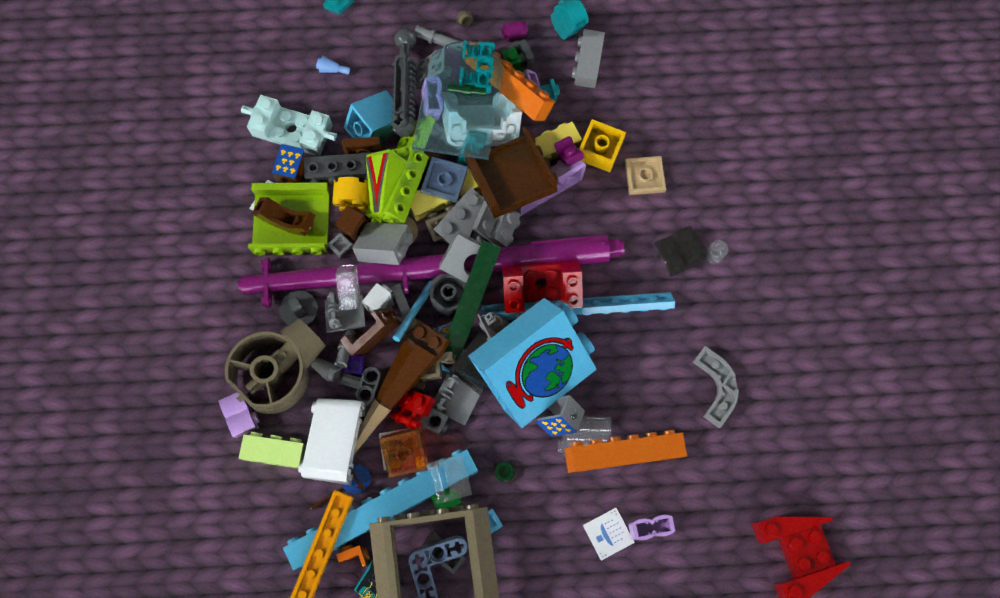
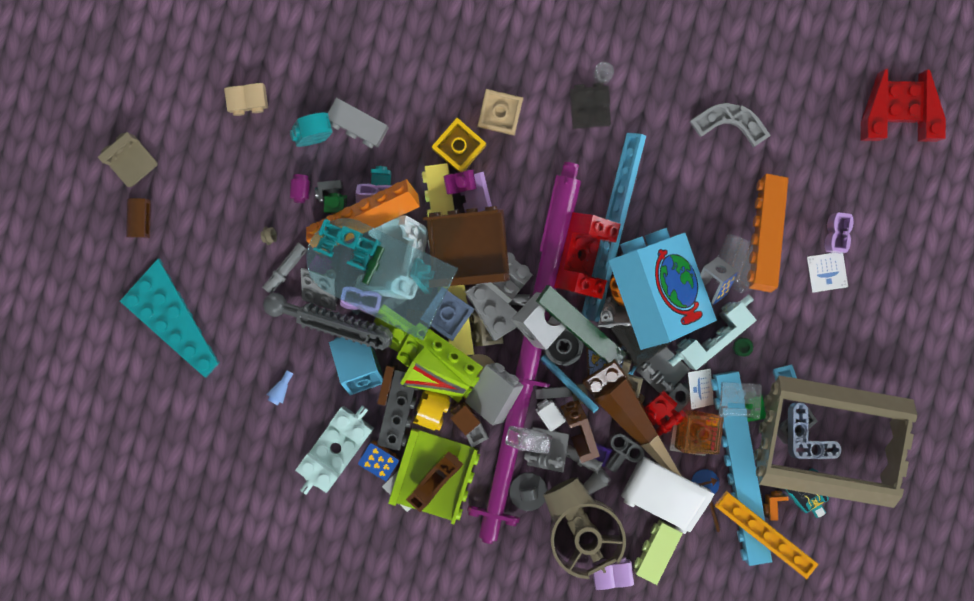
camera: 70 degrees left, 15 degrees up
(449, 439) = (700, 388): none -> white sticker
(480, 421) = (738, 320): none -> light aqua brick

